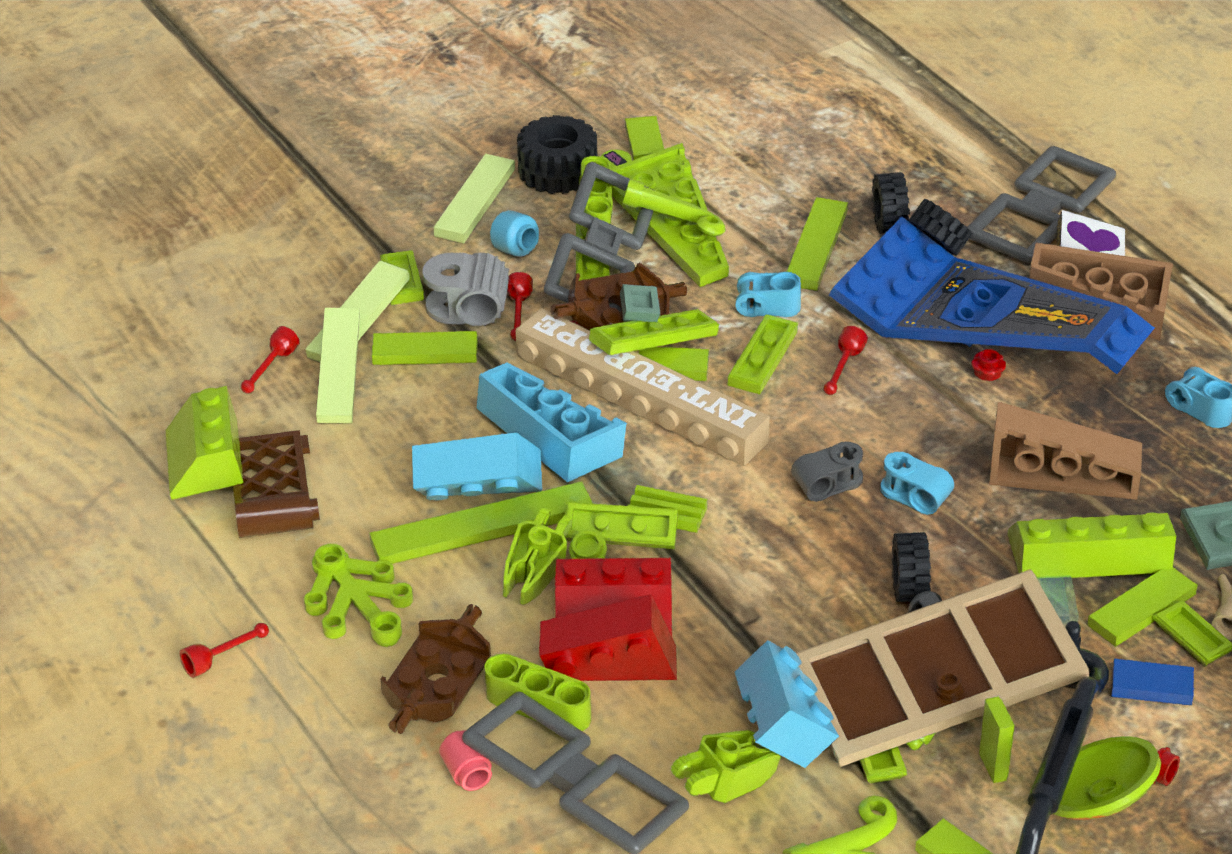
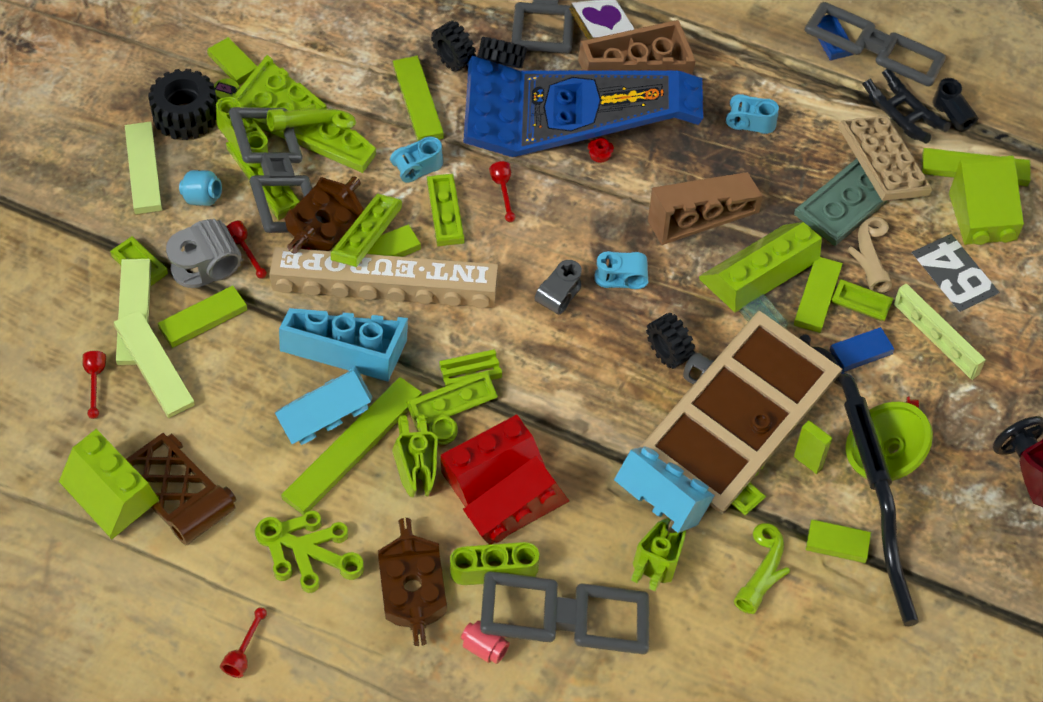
camera: 35 degrees left, 15 degrees up
(639, 303) = (347, 213): sand green tile -> none

